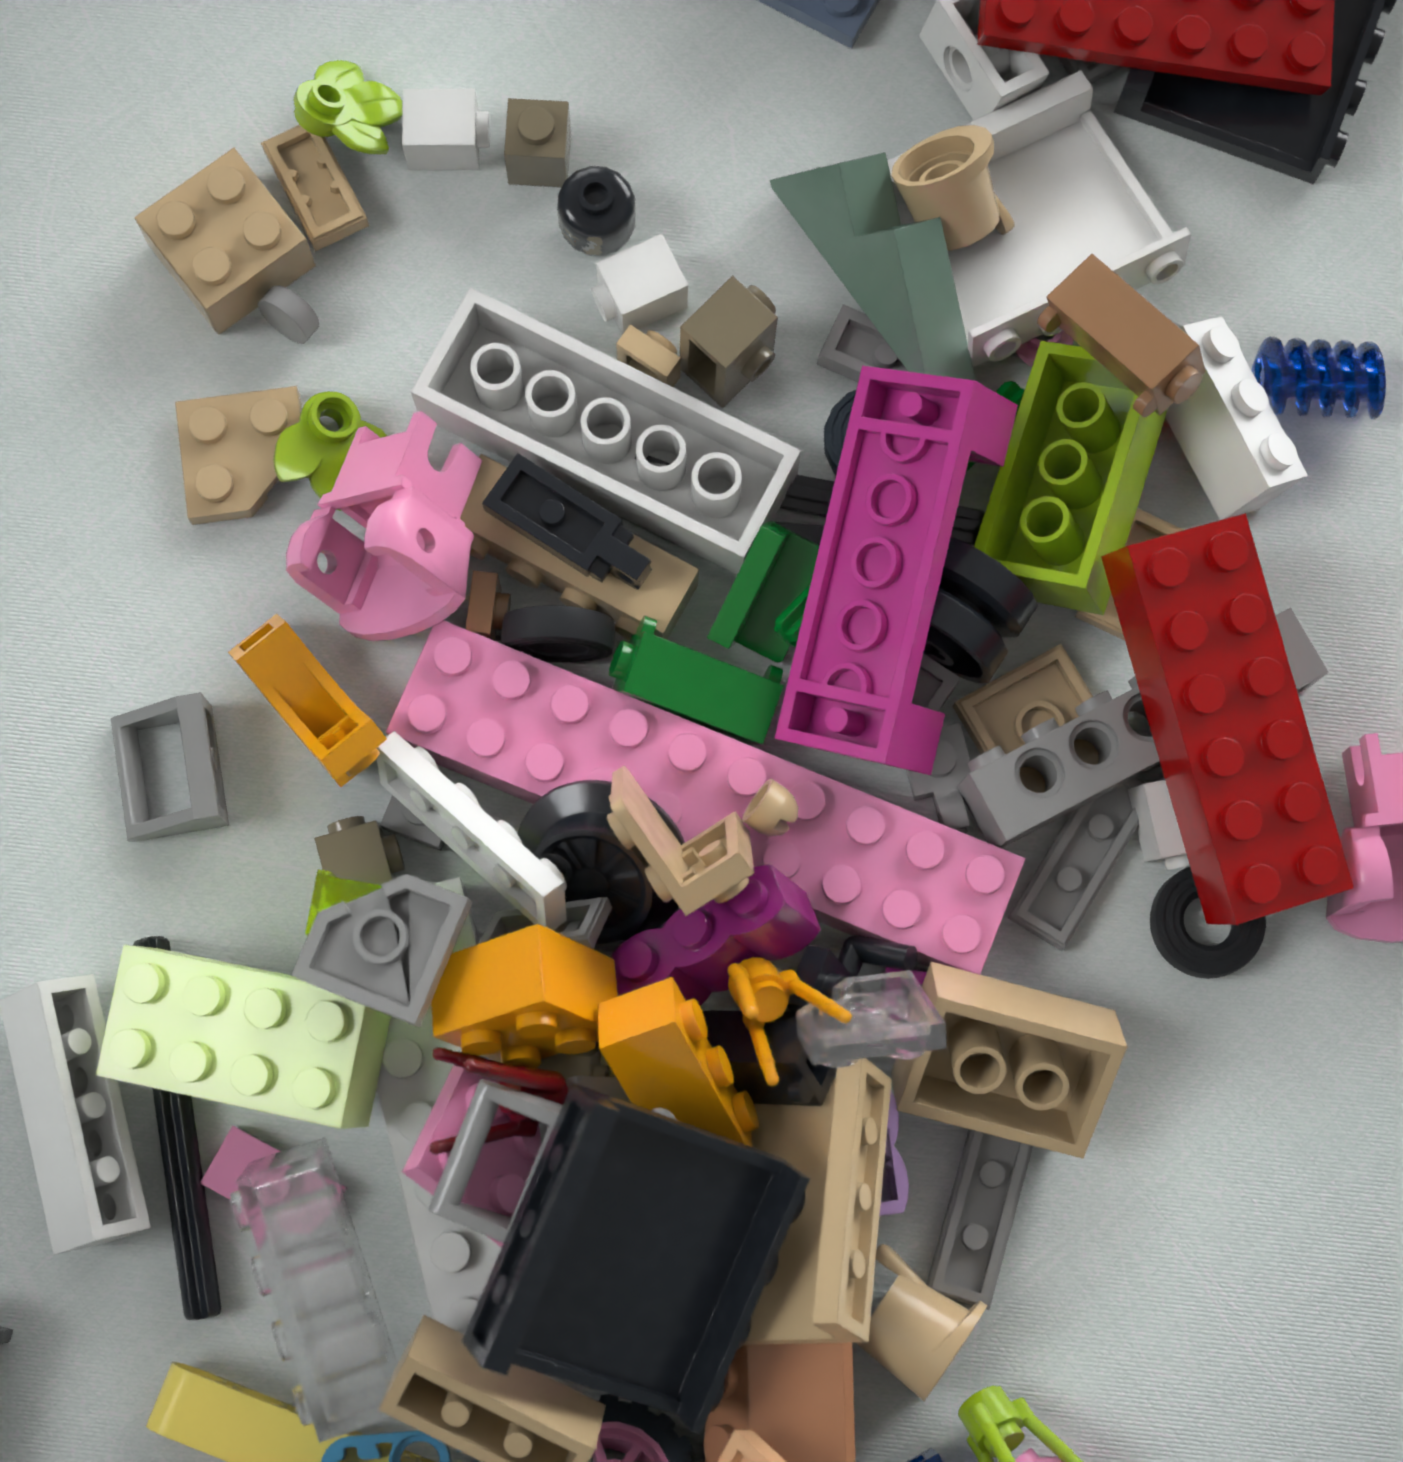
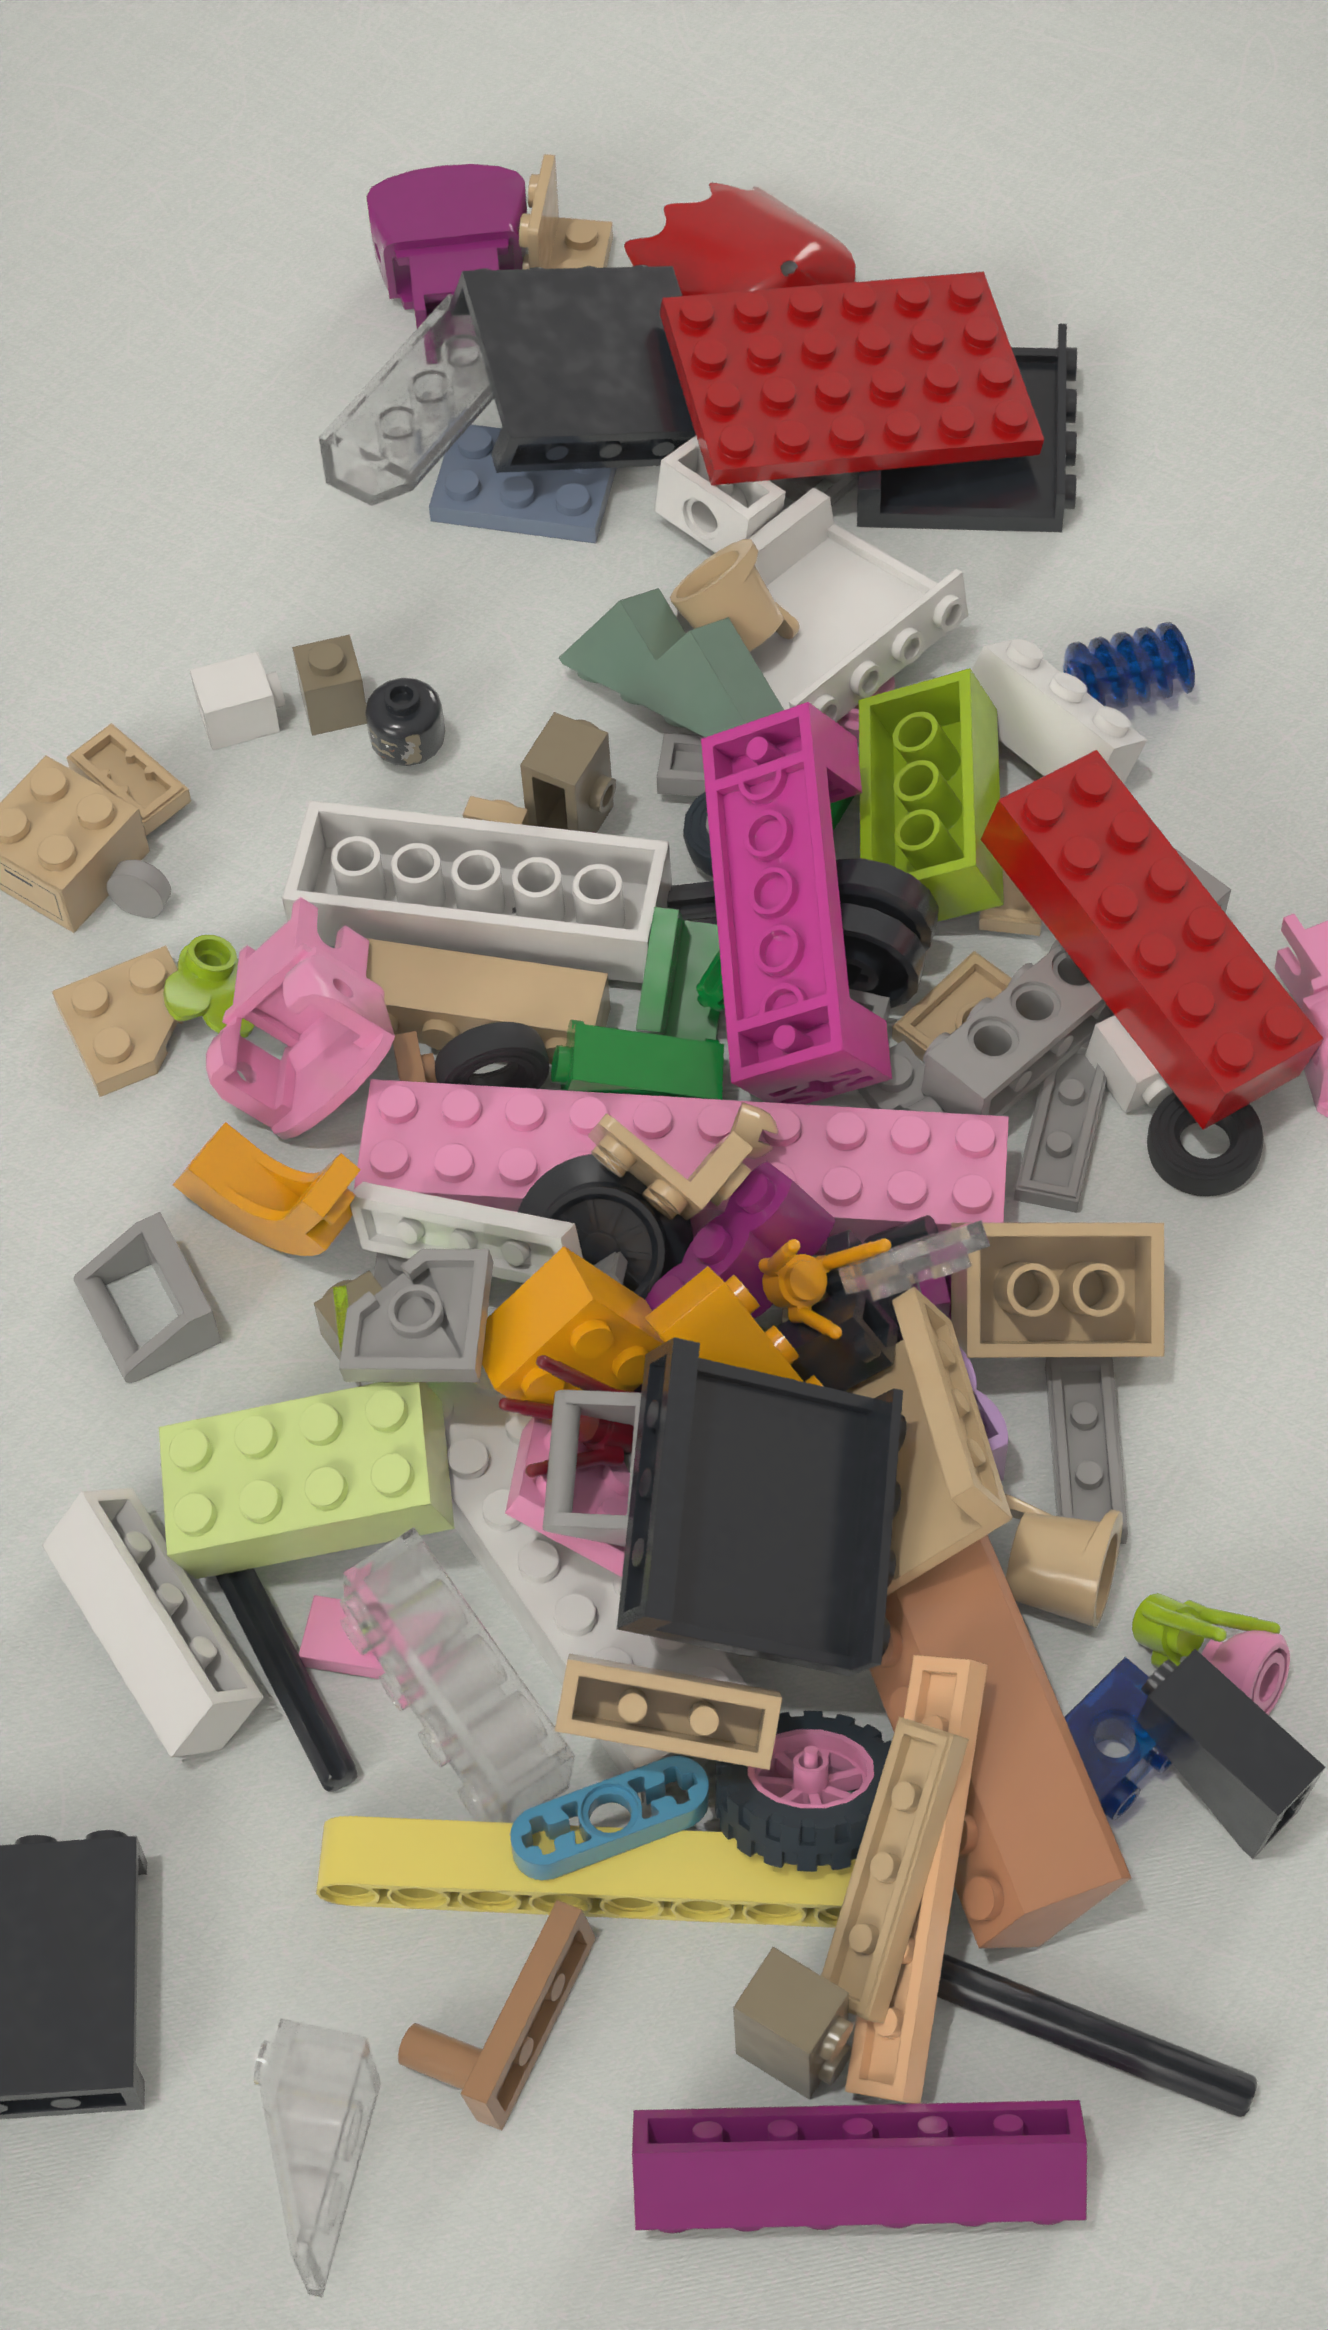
camera: 10 degrees left, 20 degrees down
(347, 107) = (127, 703): lime plate -> none
(565, 523) = (470, 963): black hinge -> none
(640, 285) = (467, 765): white brick -> none
(1125, 336) = (932, 652): medium nougat brick -> none

